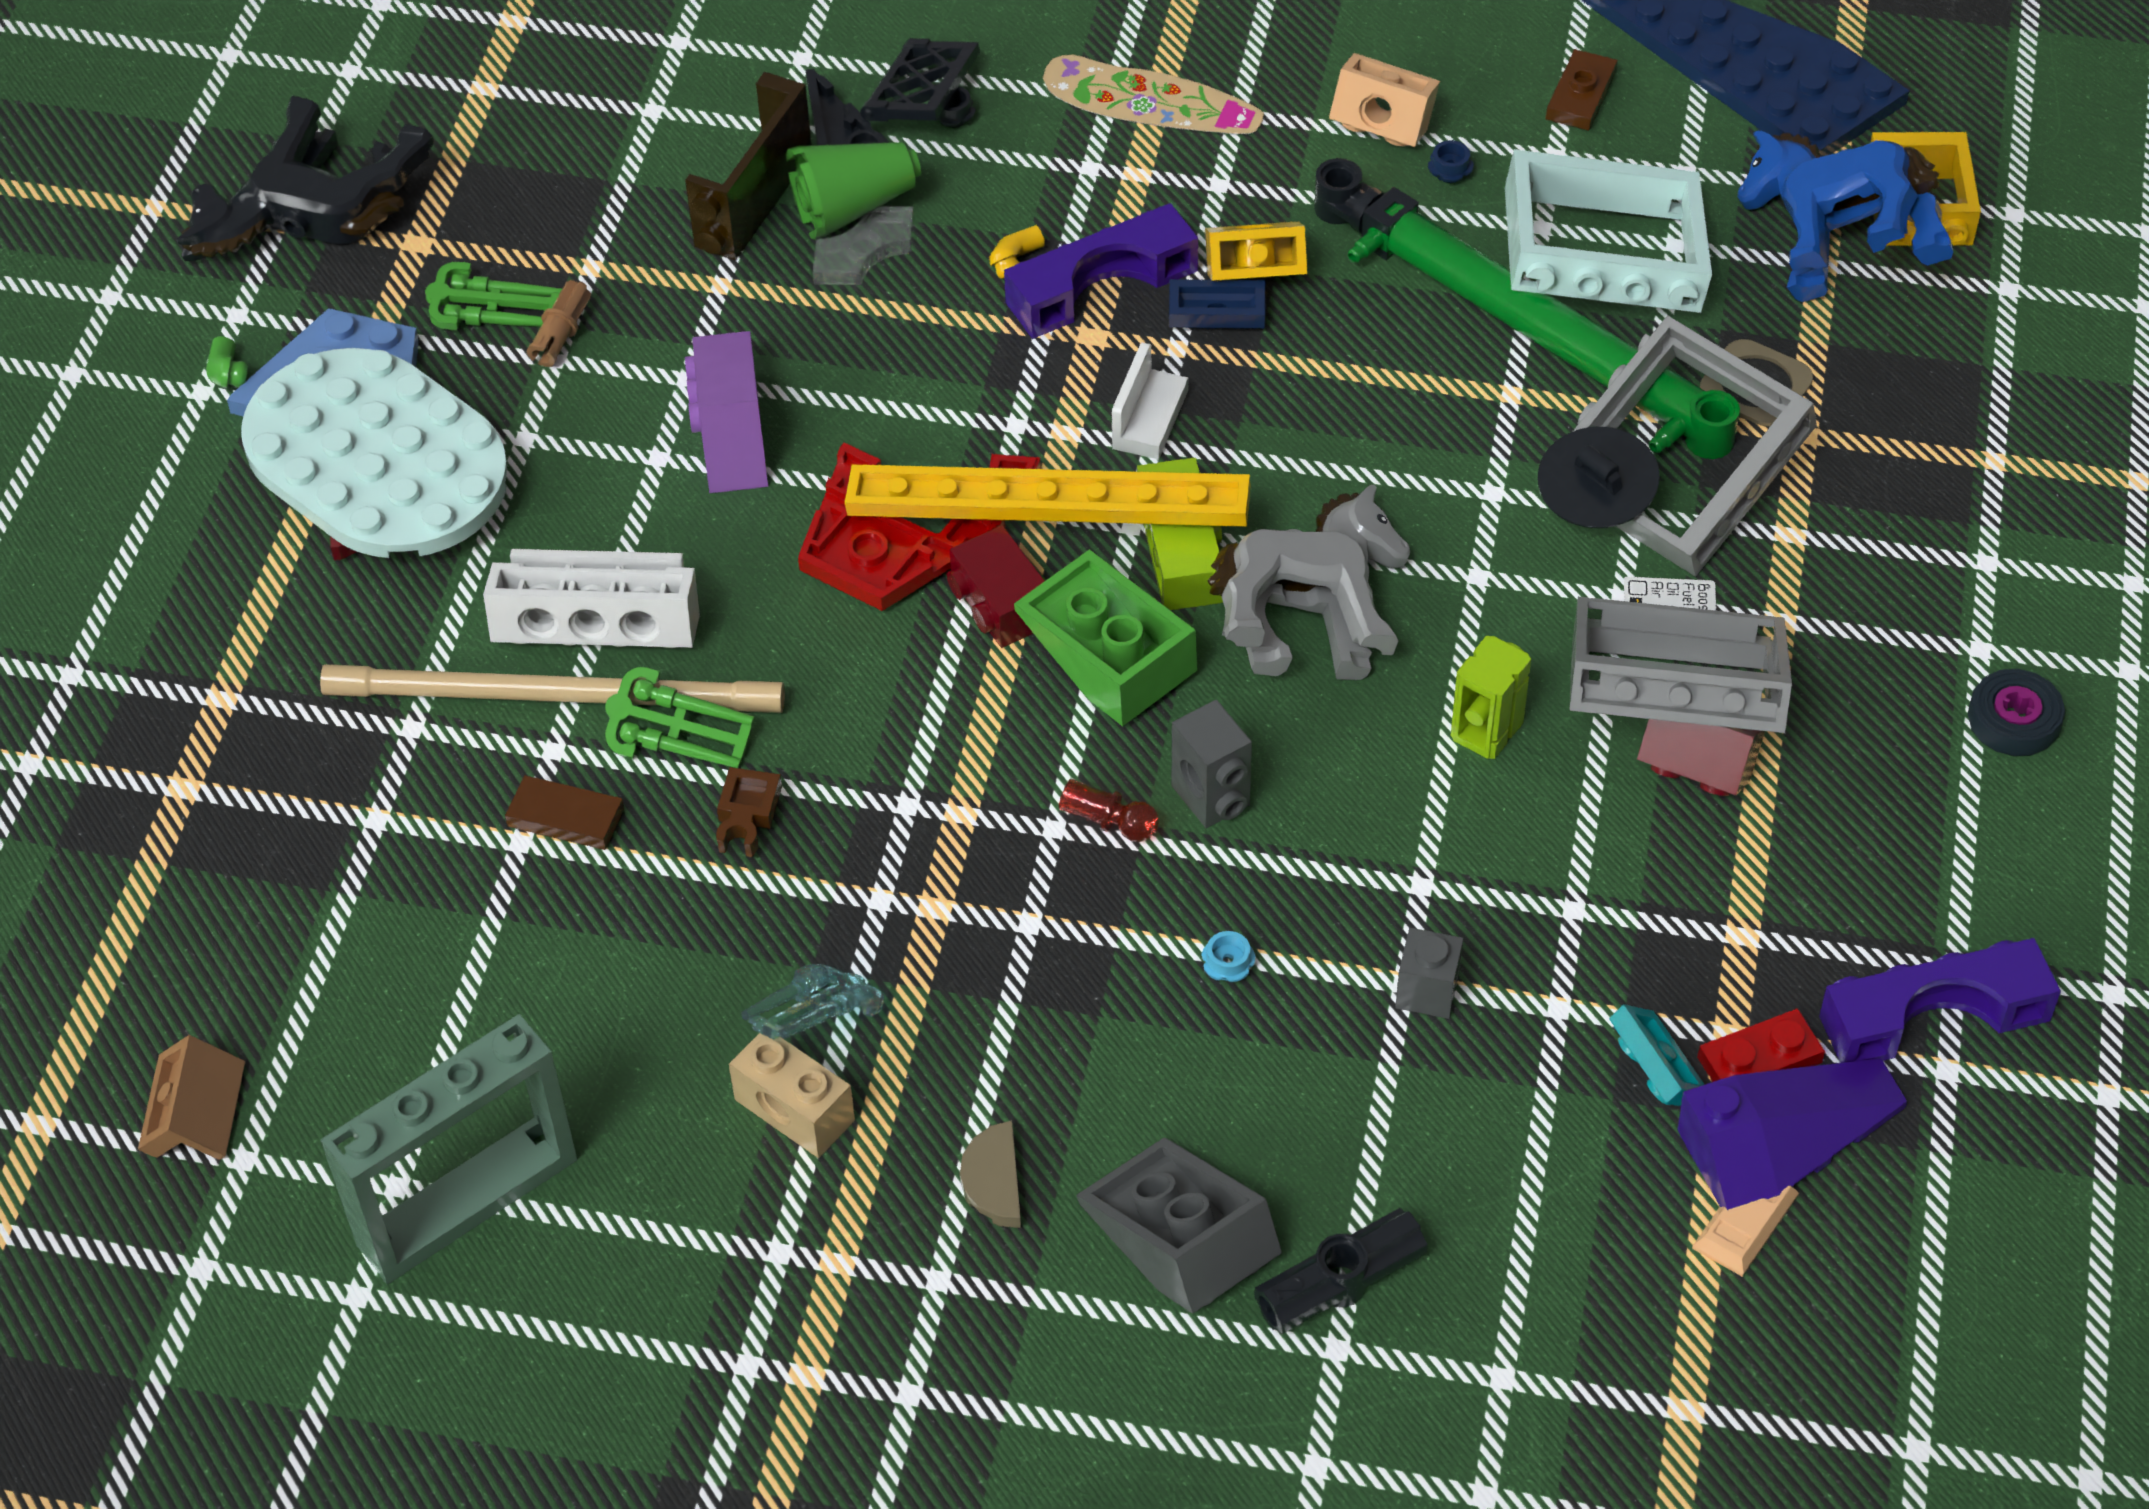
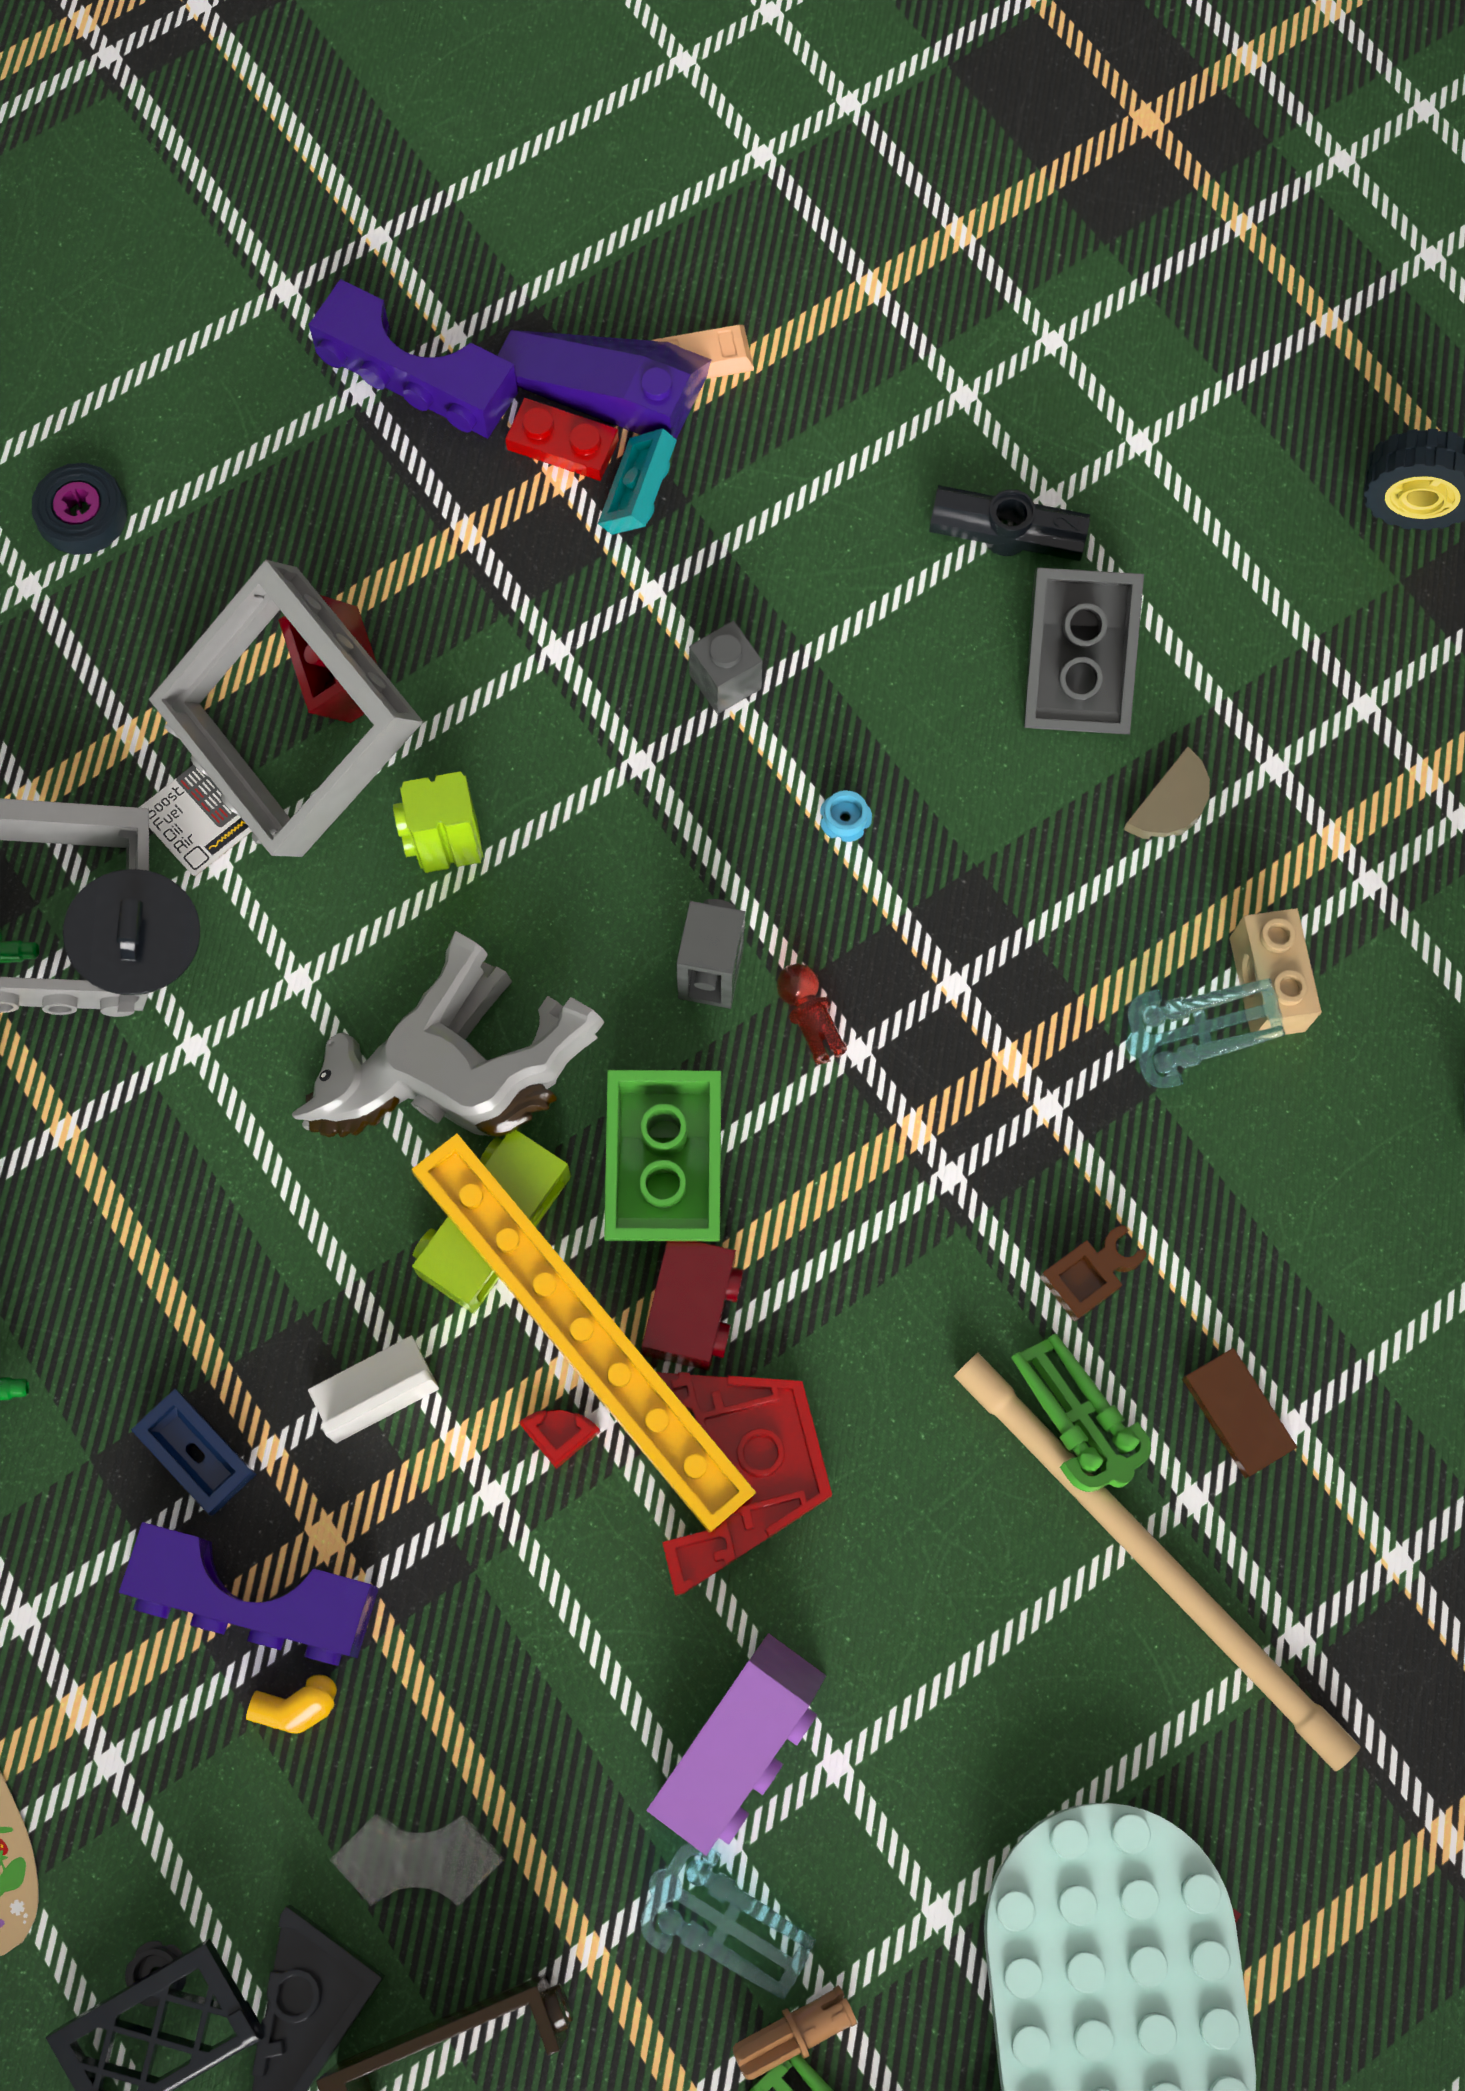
camera: 140 degrees left, 20 degrees up
(592, 599) = (1064, 1600): white brick -> none
(649, 336) = (666, 1887): none -> clear light blue piece
(848, 181) = (375, 1927): bright green cone -> none
(1256, 250) = (104, 1465): yellow brick -> none

